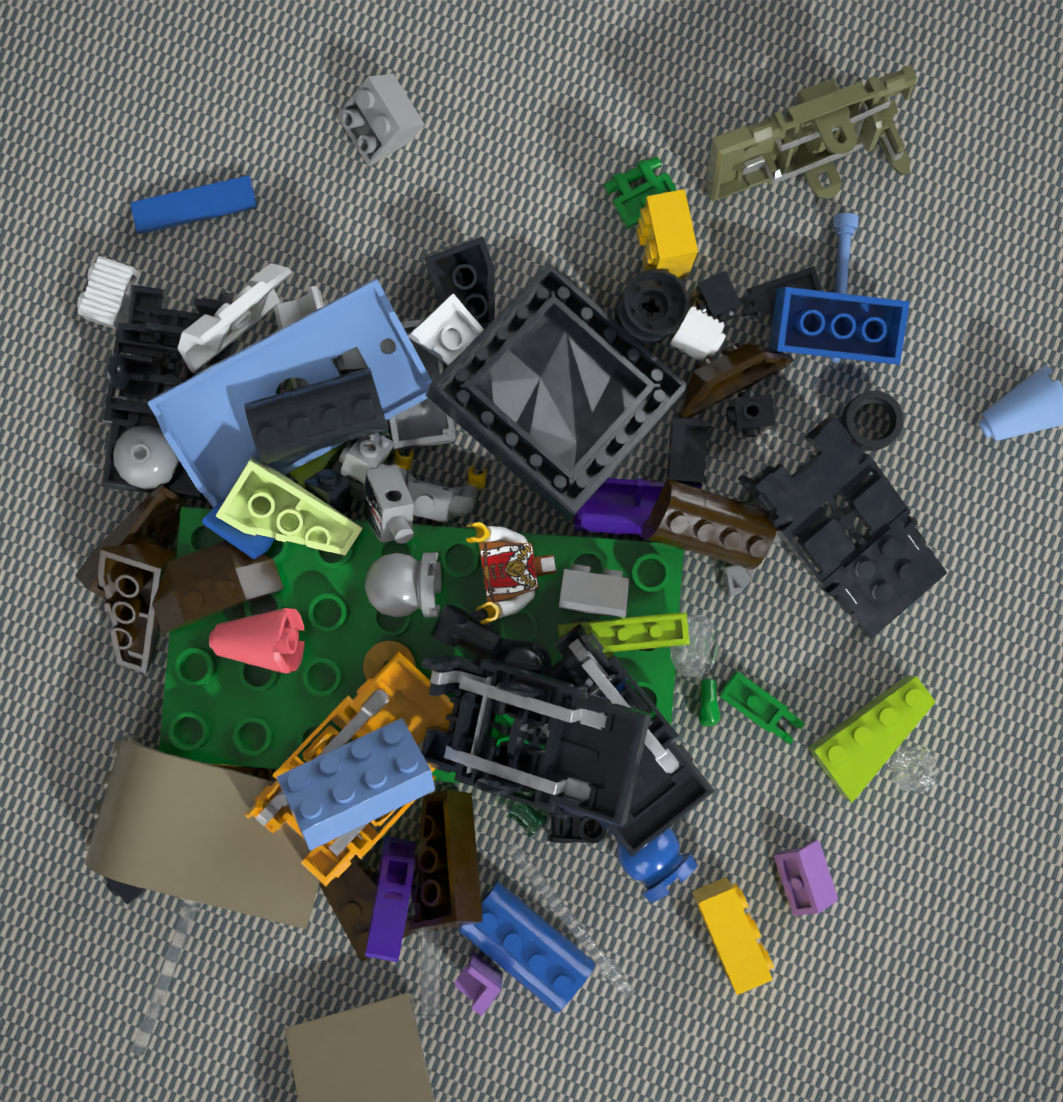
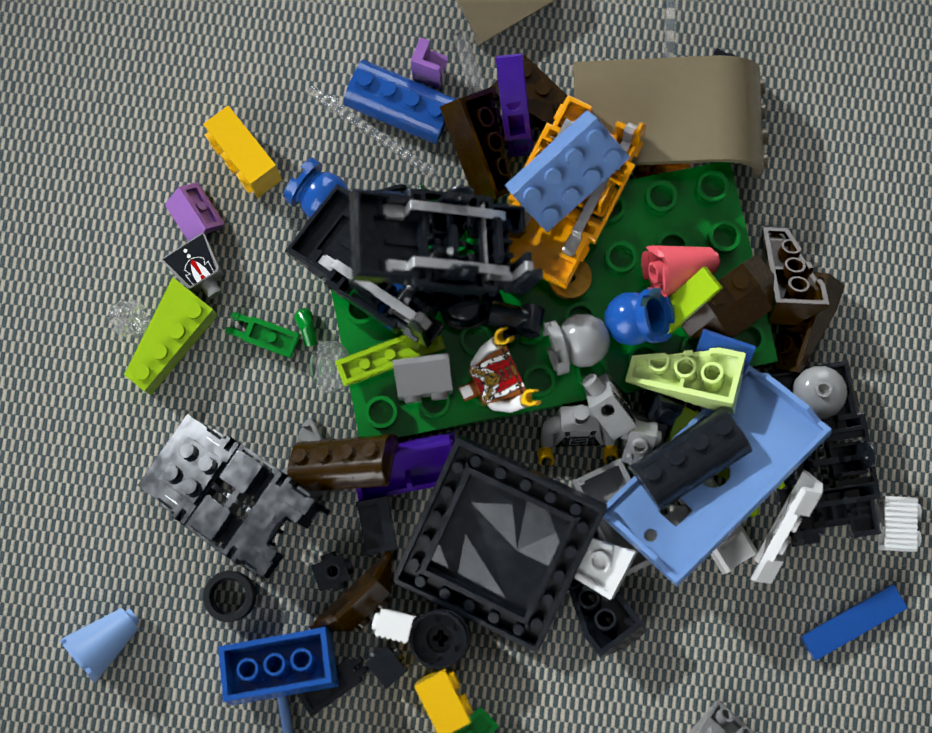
camera: 155 degrees right, 5 degrees down
(267, 594) = (693, 296): none -> lime tile
(323, 591) = (640, 317): none -> blue tile
(819, 811) = (196, 266): none -> torso

